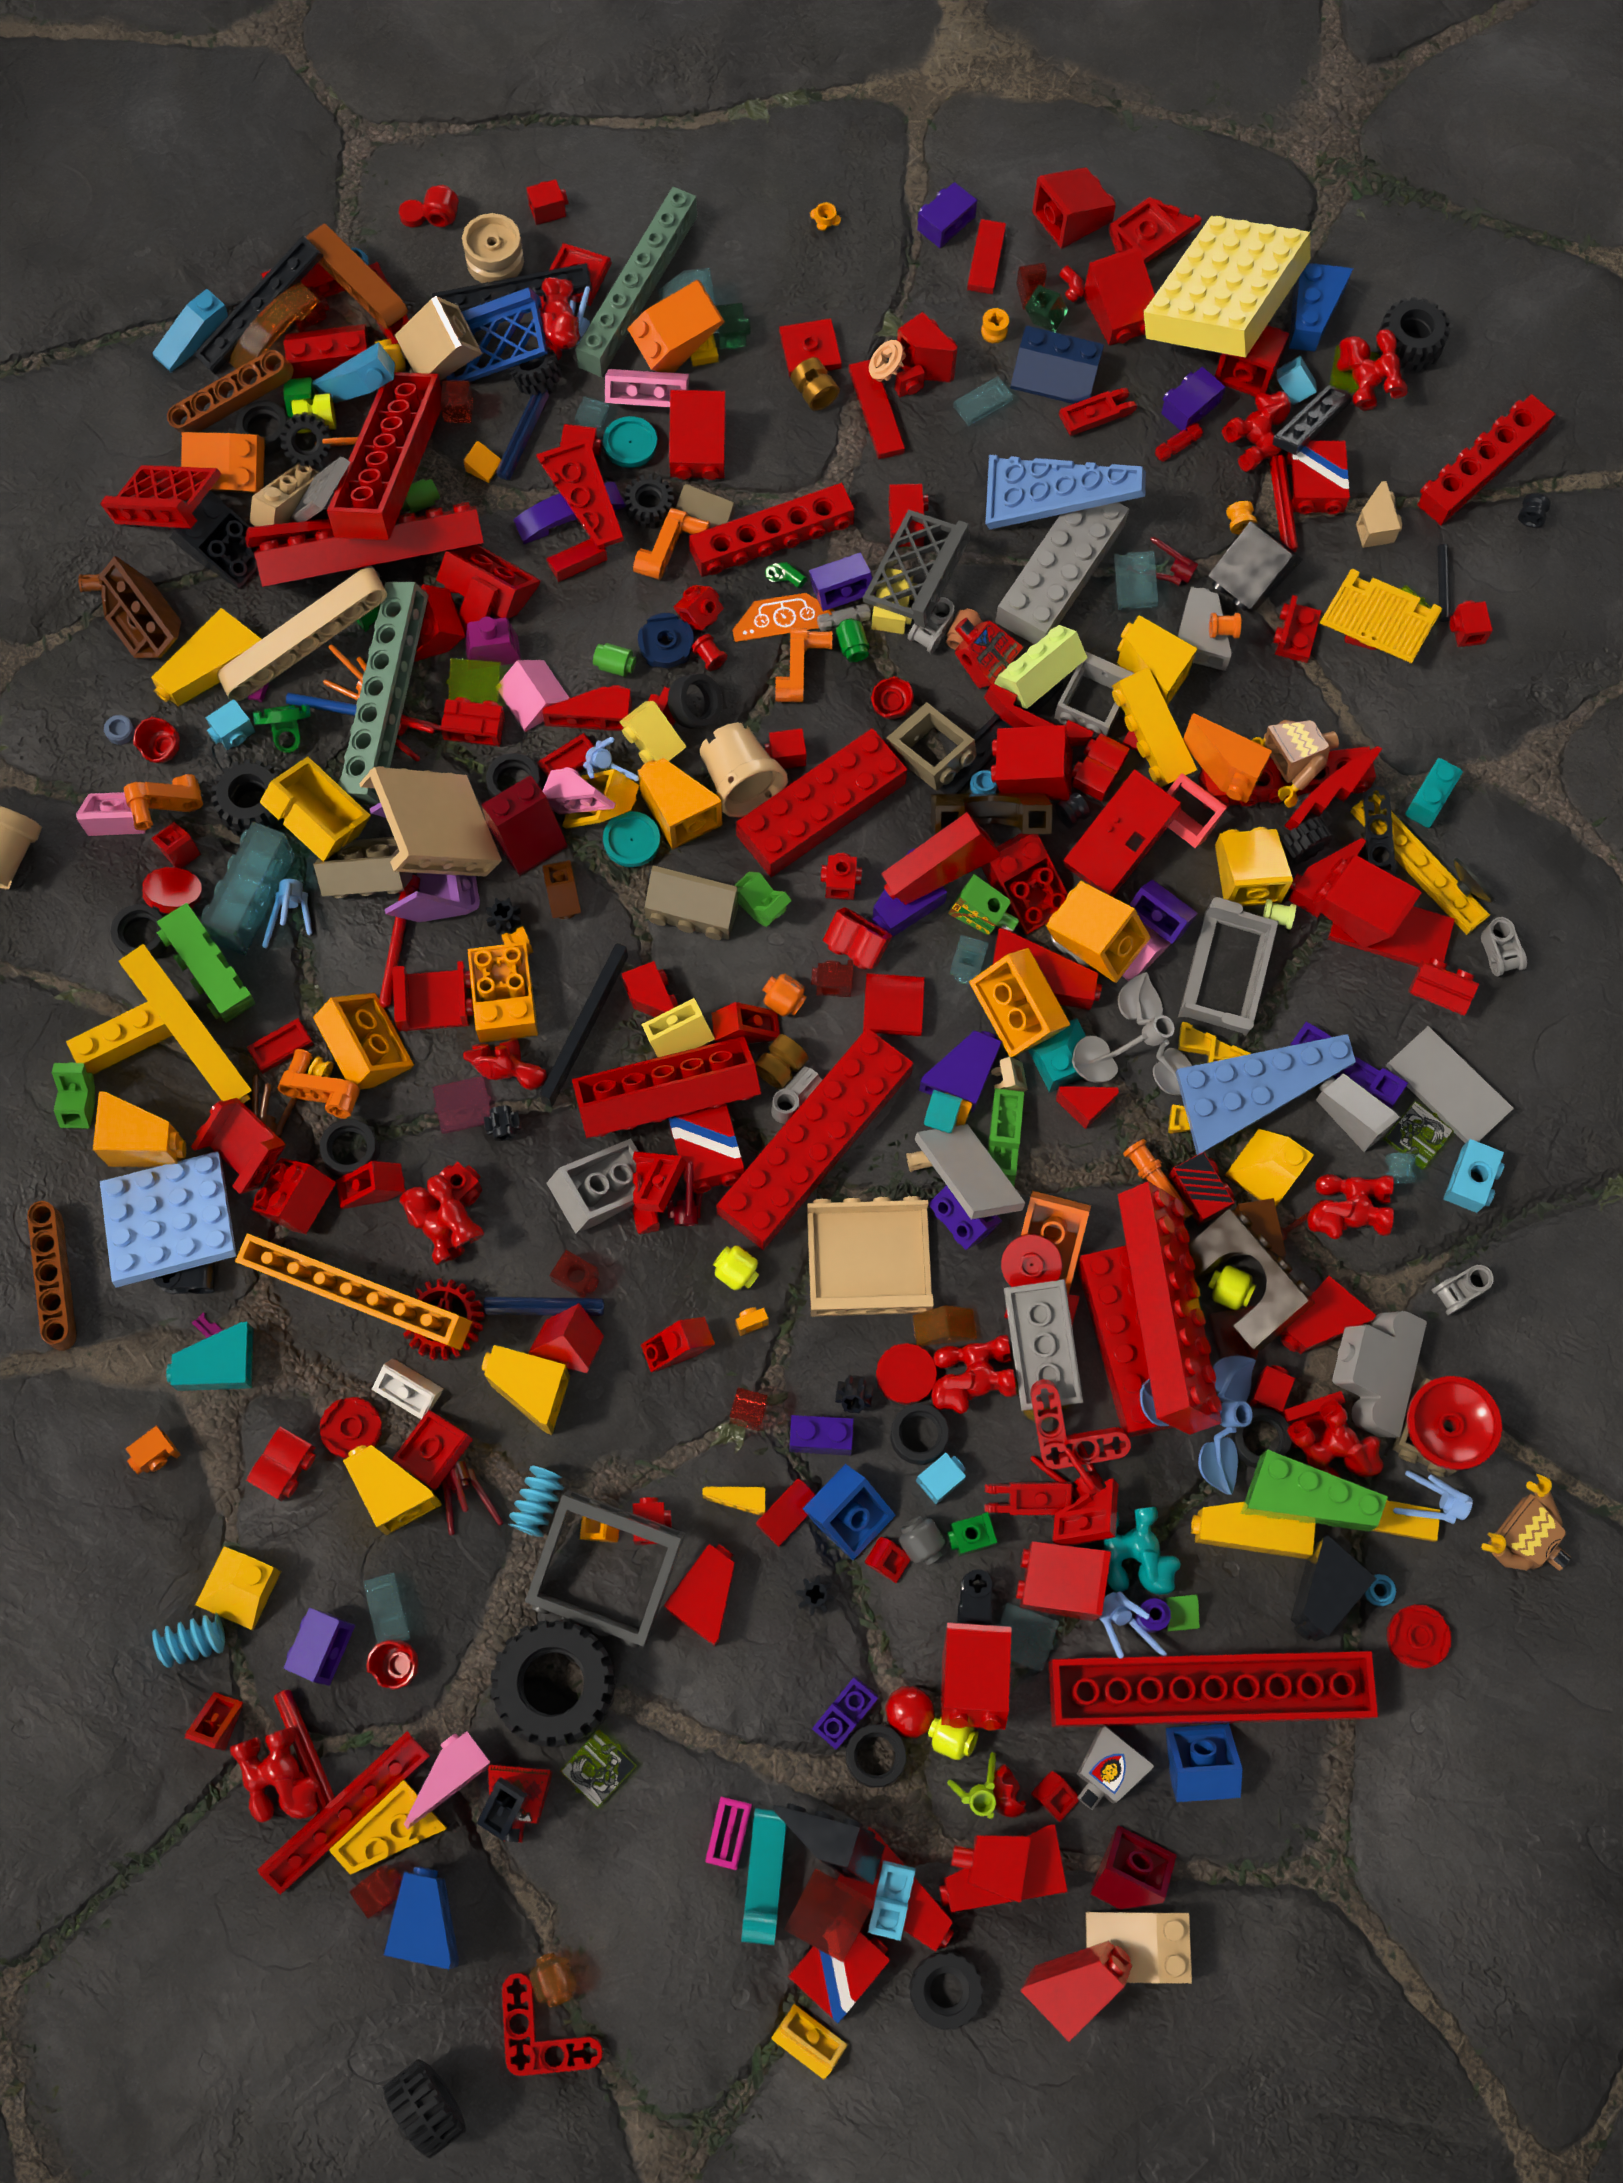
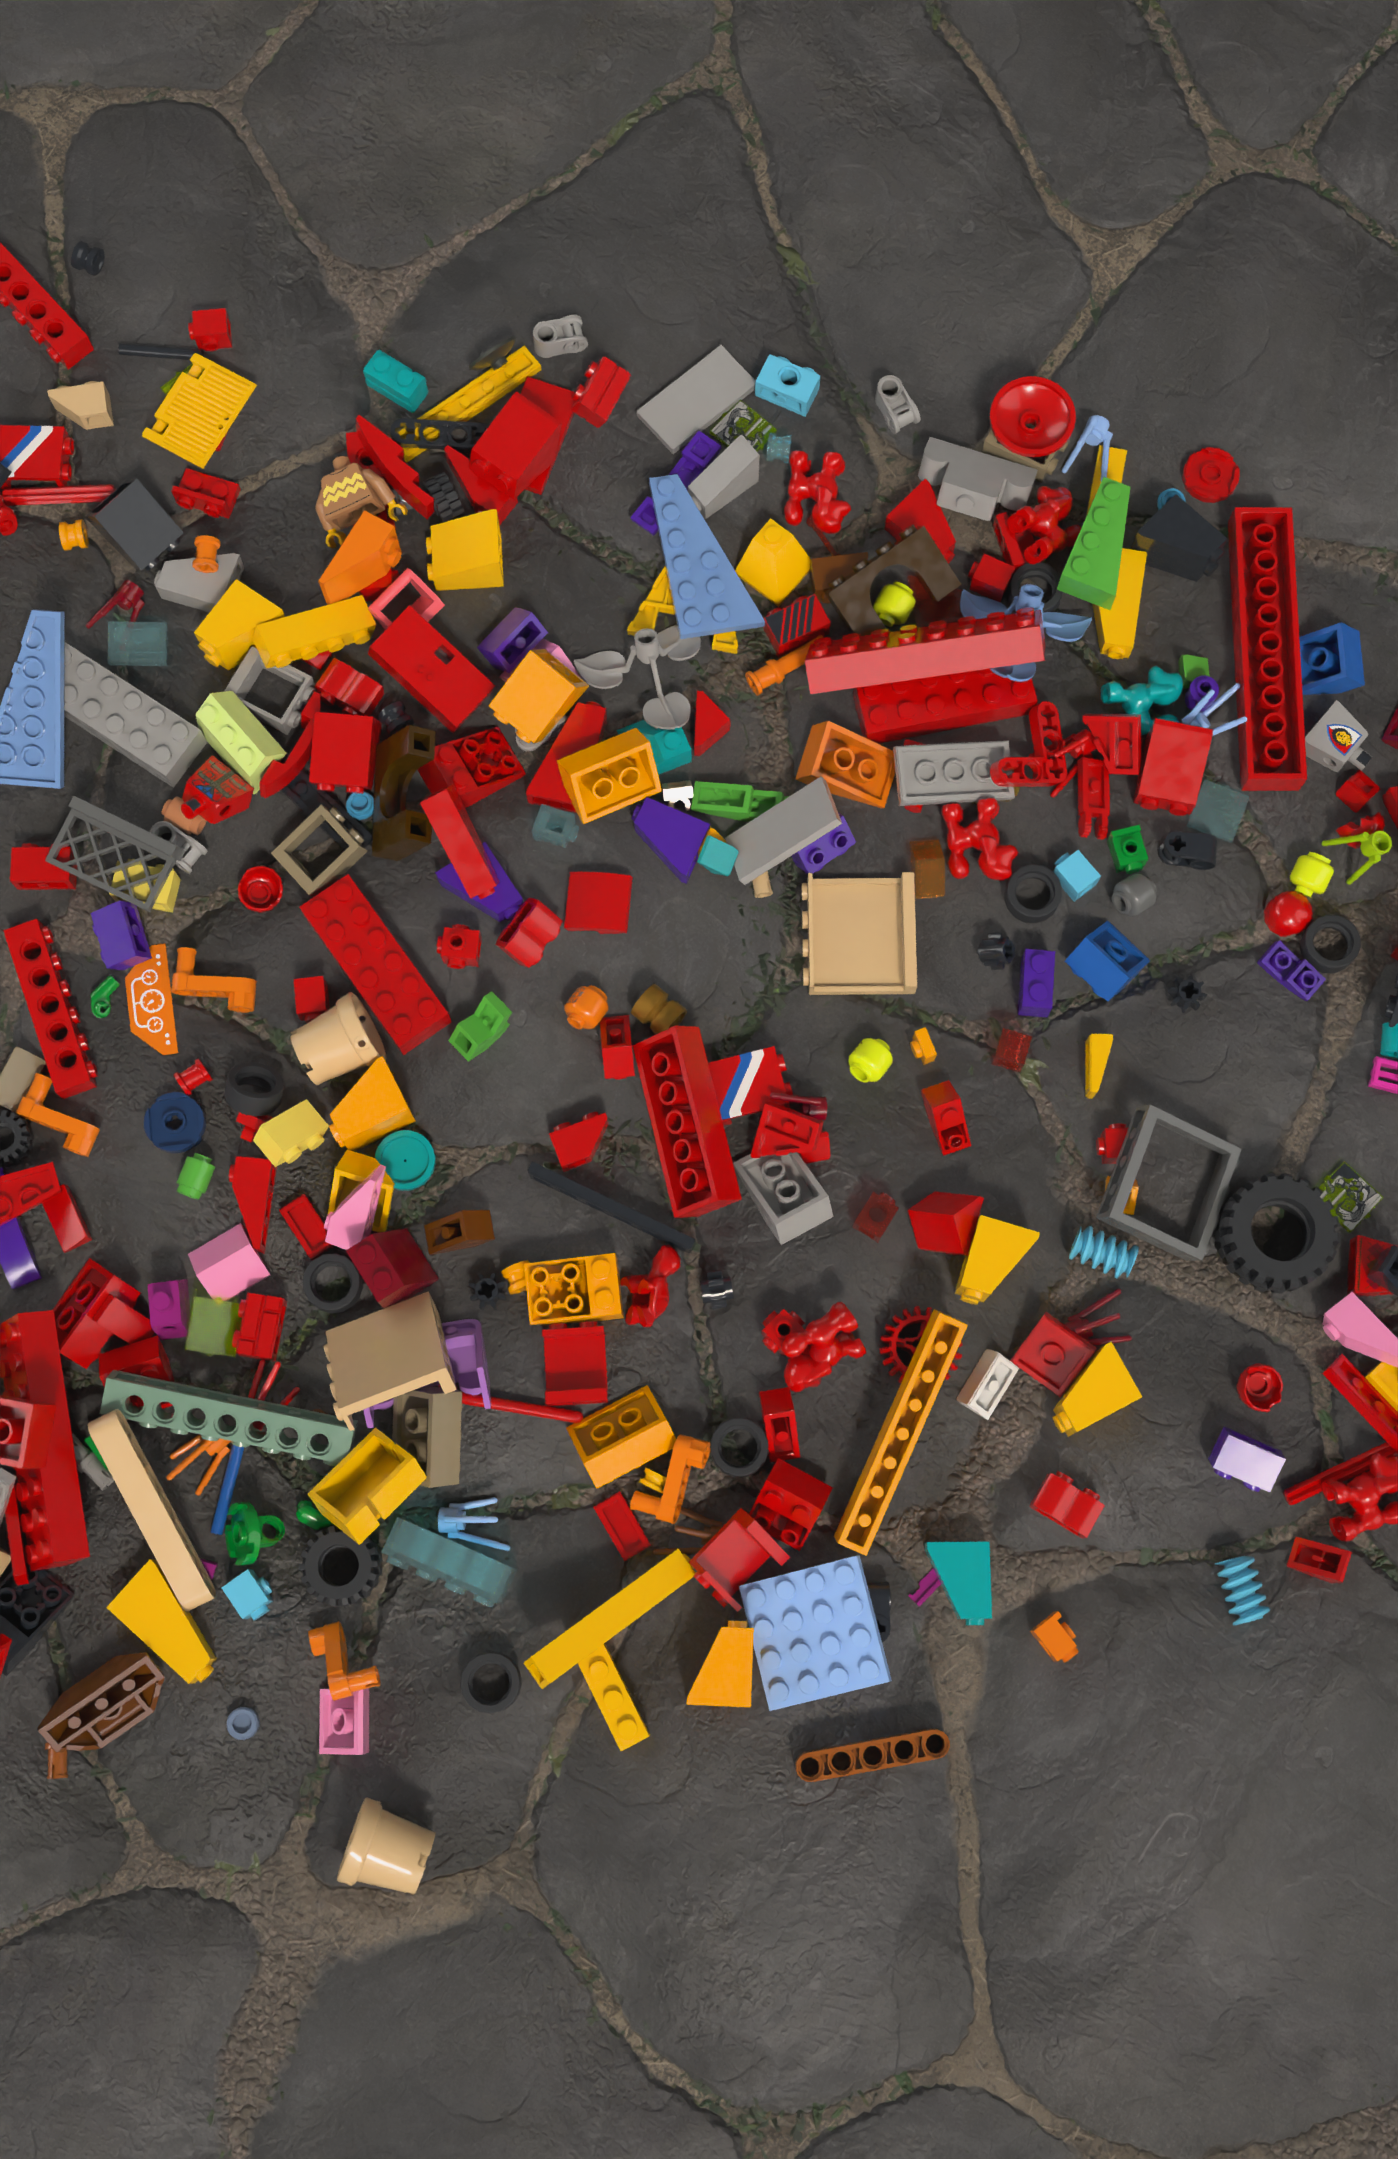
camera: 85 degrees left, 5 degrees up
(75, 1095) = (679, 1742): bright green brick -> none
(156, 740) = (264, 1675): red hair -> none
(171, 888) = (444, 1649): red tile -> none
(176, 845) = (387, 1649): red slope -> none
(205, 962) = (536, 1603): bright green wedge -> none
(238, 1588) = (1186, 1545): yellow slope -> none
(349, 1425) = (1027, 1439): red tile -> none
(386, 1608) = (1206, 1397): clear light blue slope -> none
(461, 1104) = (691, 1334): clear pink piece -> none
(540, 1306) = (905, 1251): dark blue axle -> none
(601, 759) = (313, 1191): light blue plant -> none
(678, 1029) = (624, 1110): light yellow brick -> none
(691, 903) = (486, 1096): dark tan slope -> none
(699, 606) = (140, 1084): red brick -> none
(704, 1593) = (1186, 1093): red slope -> none
(786, 1513) = (1106, 1018): red slope -> none
(794, 1093) = (692, 997): light grey piece -> none
(814, 1139) = (739, 980): red brick -> none
(833, 978) = (569, 958): clear red brick -> none
(852, 640) = (188, 928): green brick -> none
(861, 613) = (159, 937): light grey axle -> none
(887, 1559) = (1149, 929): red slope -> none
(906, 1374) = (973, 905): red tile -> none
(976, 1676) = (1265, 847): red slope -> none
(983, 907) = (500, 810): bright green torso -> none
(1027, 1250) = (870, 782): red piece -> none
(1232, 915) = (580, 559): light grey piece -> none
(1280, 913) = (516, 534): yellowish green bush -> none
(1531, 1532) = (1120, 371): medium nougat torso -> none

